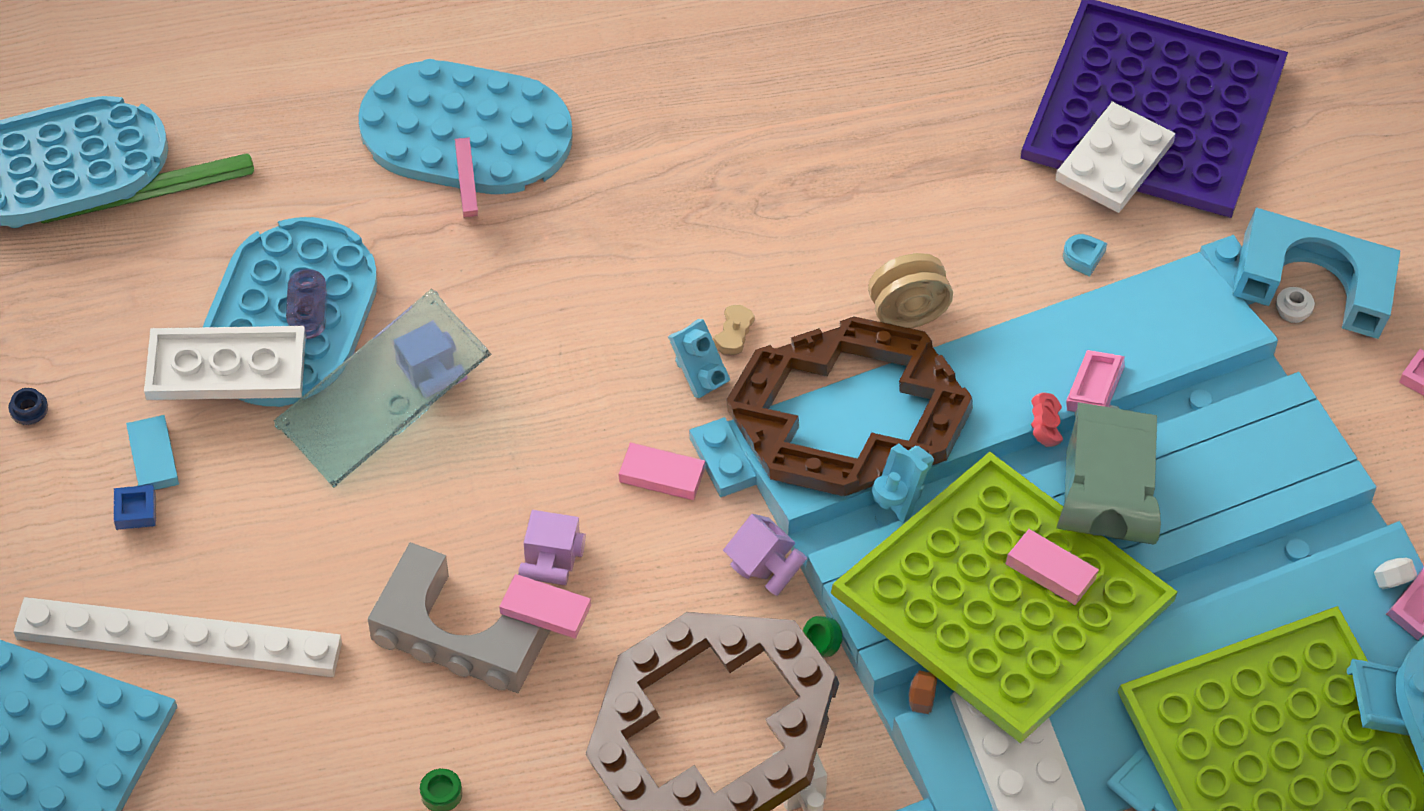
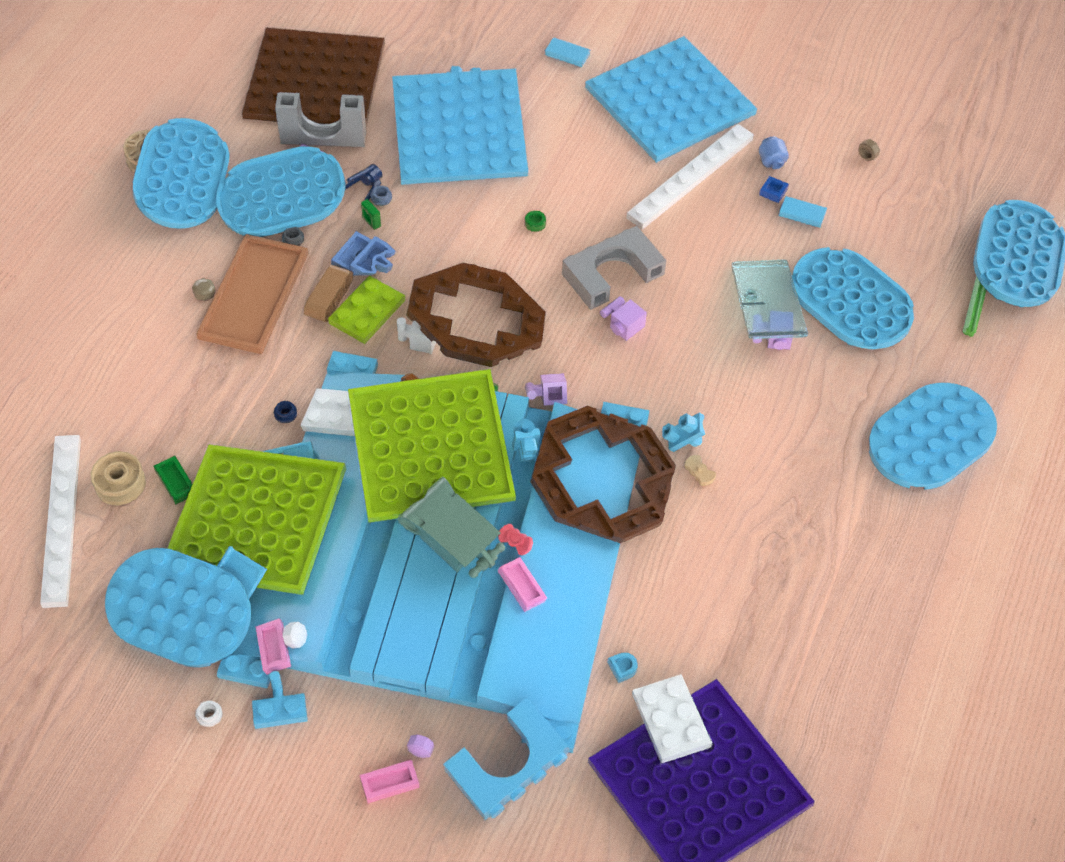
camera: 125 degrees right, 0 degrees up
(28, 398) = (865, 181): dark blue plate -> none
(53, 545) = (773, 152): none -> medium blue head
(225, 363) = (828, 247): white plate -> none
(307, 300) = (844, 297): clear purple plate -> none
(466, 177) = (884, 400): bright pink tile -> none
(545, 606) = (586, 283): bright pink tile -> none
(661, 471) = (636, 388): bright pink tile -> none
(910, 290) = (652, 544): tan wheel -> none
(1052, 566) = (423, 466): bright pink tile -> none
(1293, 311) = (499, 751): white plate -> none
(1379, 373) = (420, 746): none -> lavender tile

